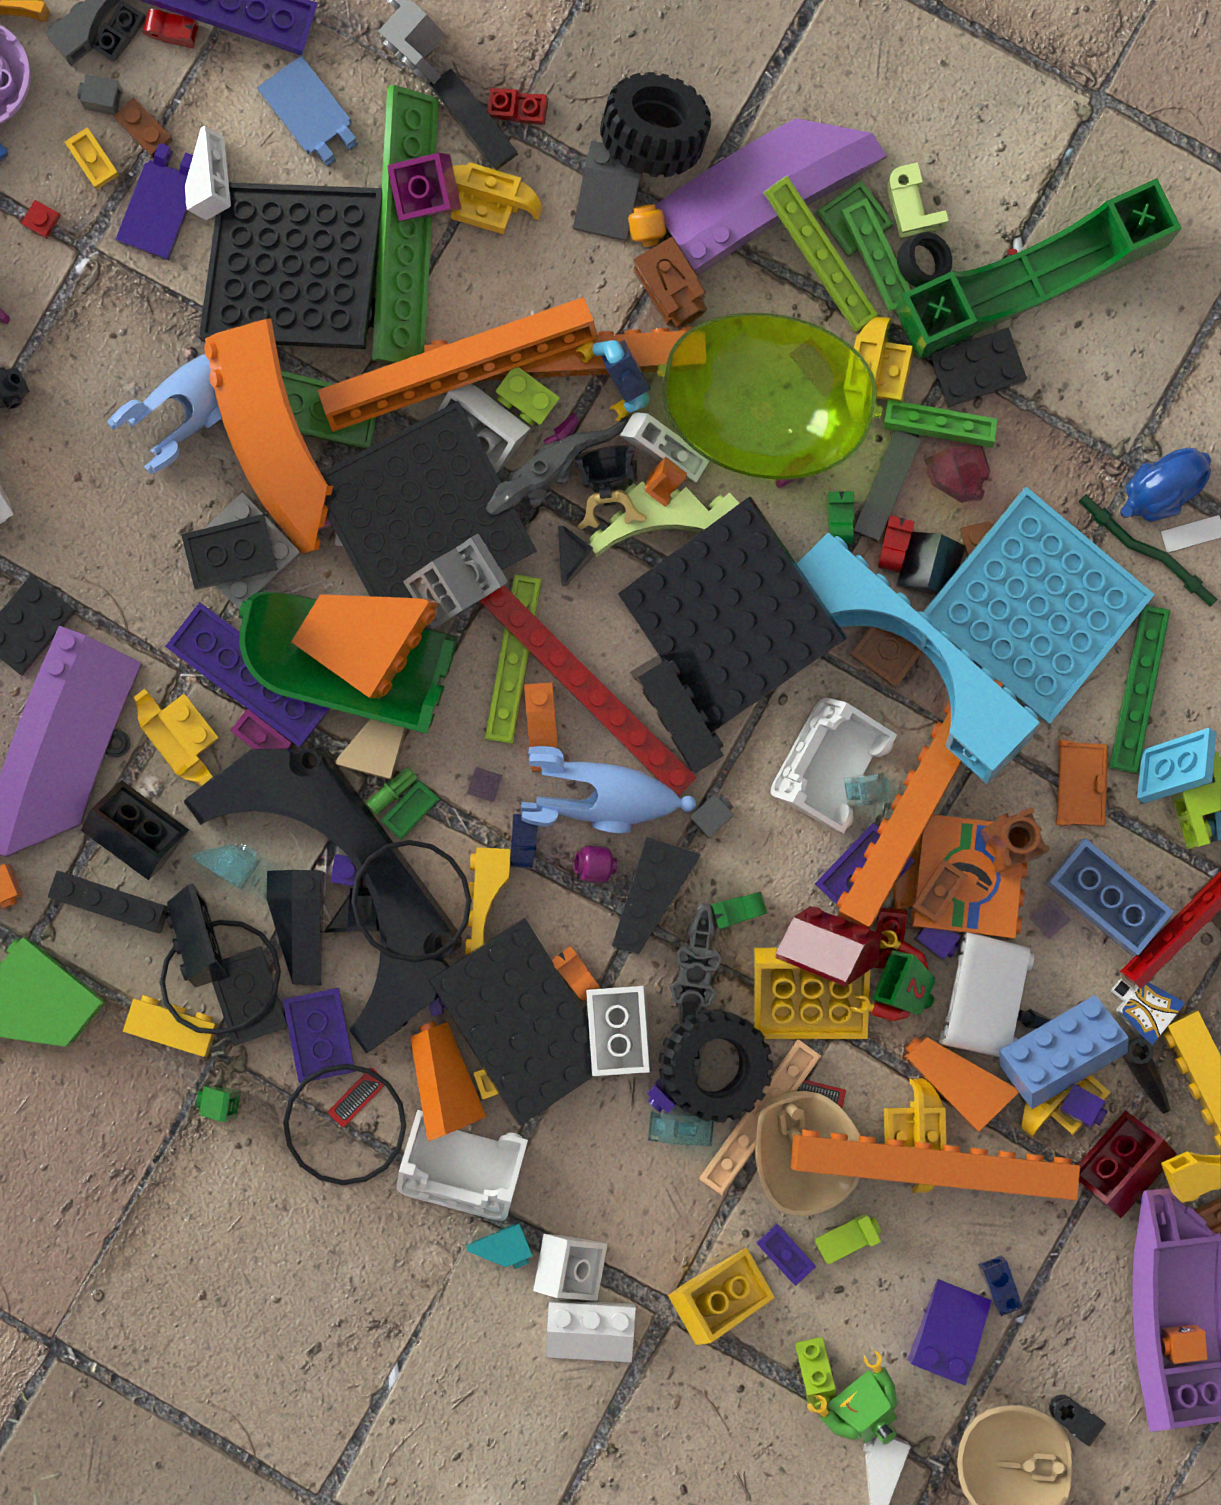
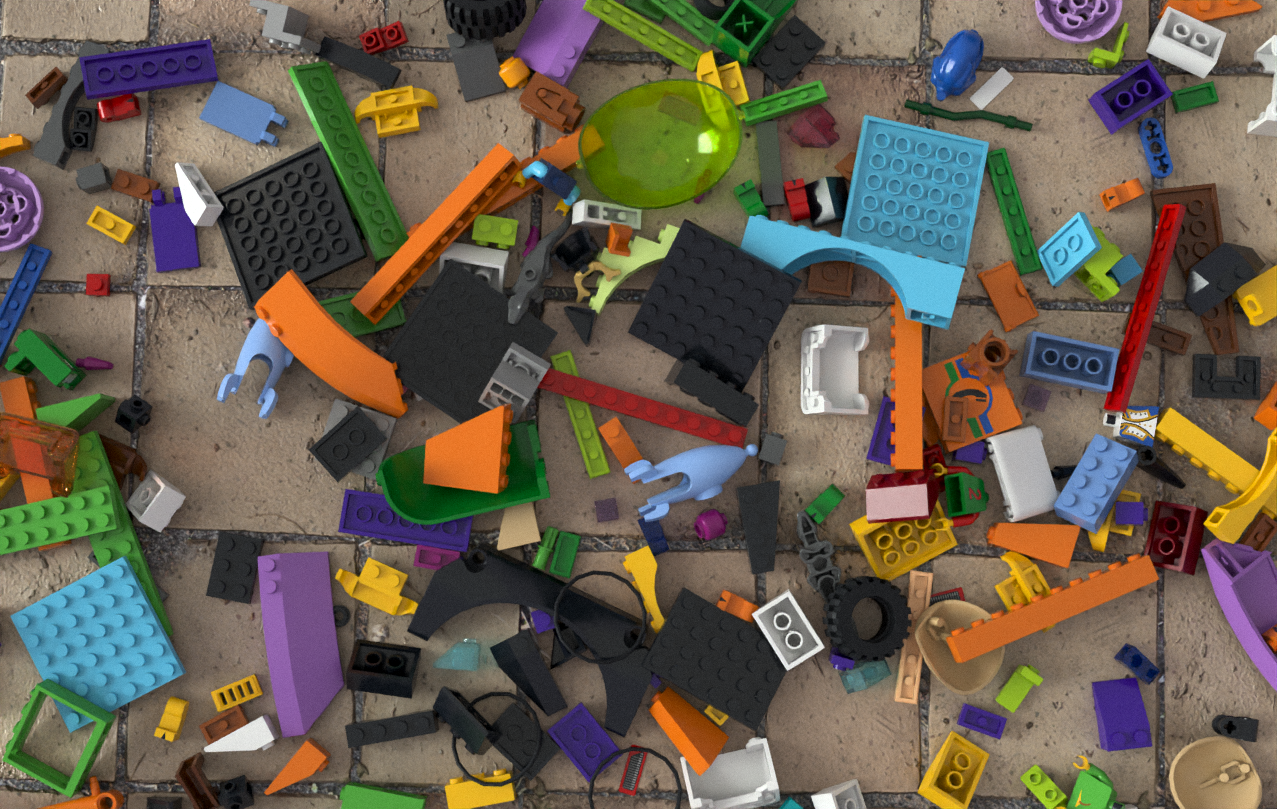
camera: 20 degrees left, 0 degrees up
(424, 186) = (349, 125): magenta slope -> none
(866, 789) = (867, 376): clear light blue slope -> none

